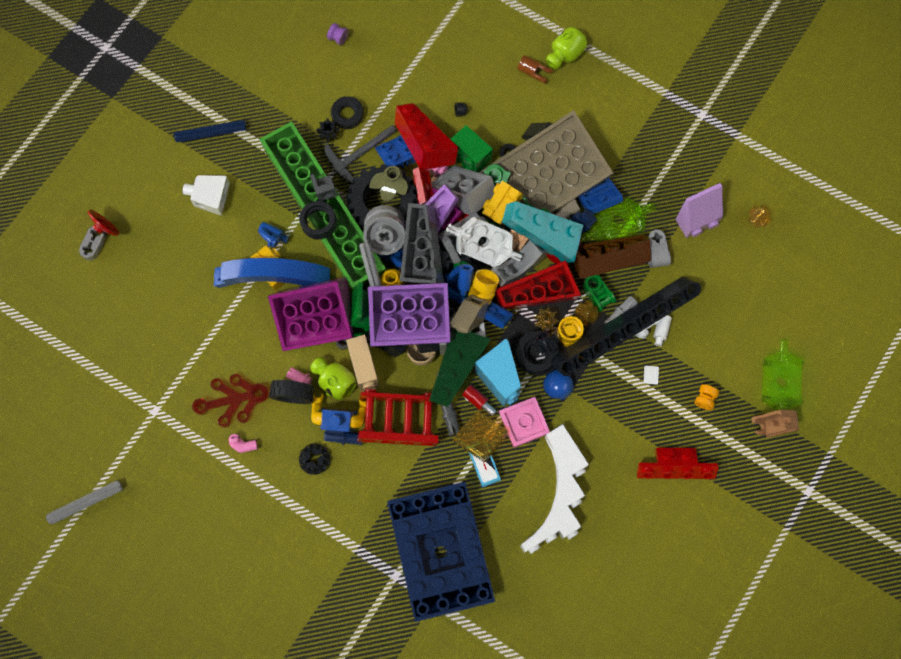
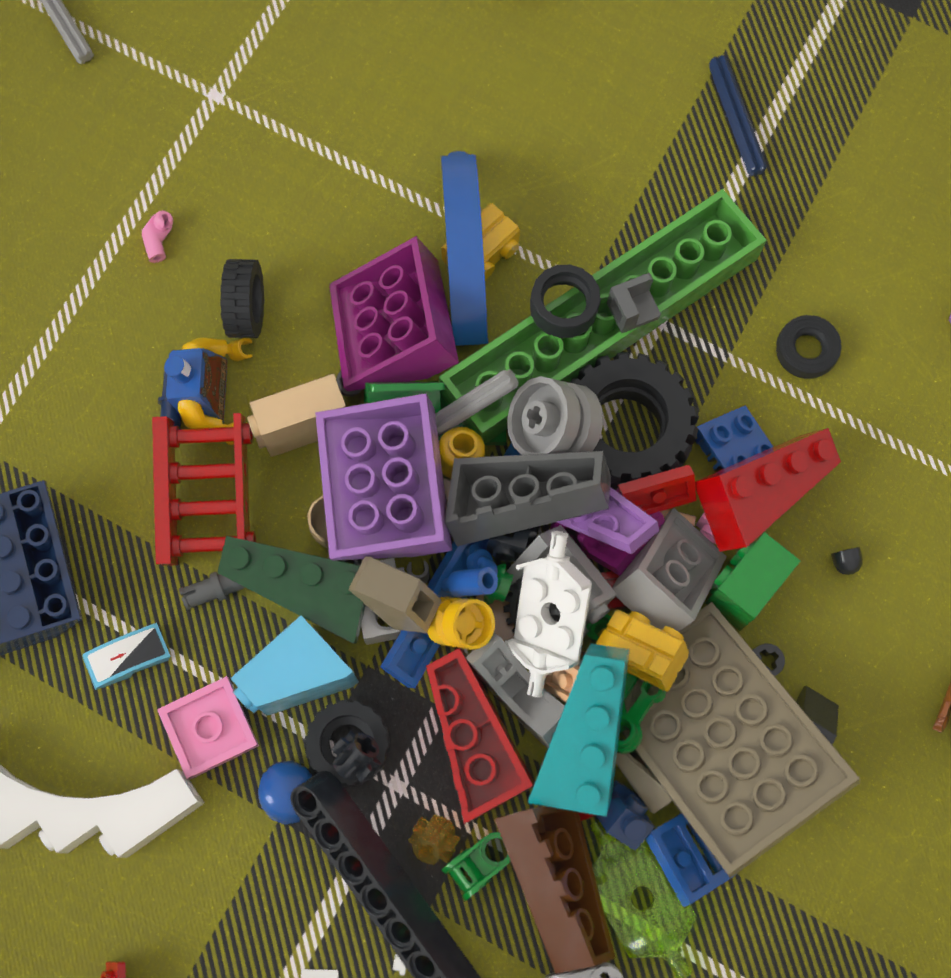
camera: 85 degrees right, 0 degrees up
(208, 192) = (614, 126): white torso -> none
(233, 400) = (237, 213): clear red plant -> none
(272, 234) = (548, 242): blue plant -> none
(296, 375) = (275, 322): bright pink pin -> none
(310, 467) = (149, 358): black gear -> none
(328, 130) = (768, 305): black gear -> none
(334, 378) = (276, 366): lime piece -> none
(340, 165) = (698, 346): dark grey piece -> none
(389, 186) = (650, 424): olive plate -> none
(479, 400) = (249, 637): red piece -> none
(480, 436) = (173, 644): clear yellow plate -> none
(497, 173) = (704, 634): green animal -> none
(545, 313) = (423, 766): clear yellow gear -> none
(569, 331) = (391, 806): yellow wheel -> none
(626, 305) = (457, 925): light grey axle -> none

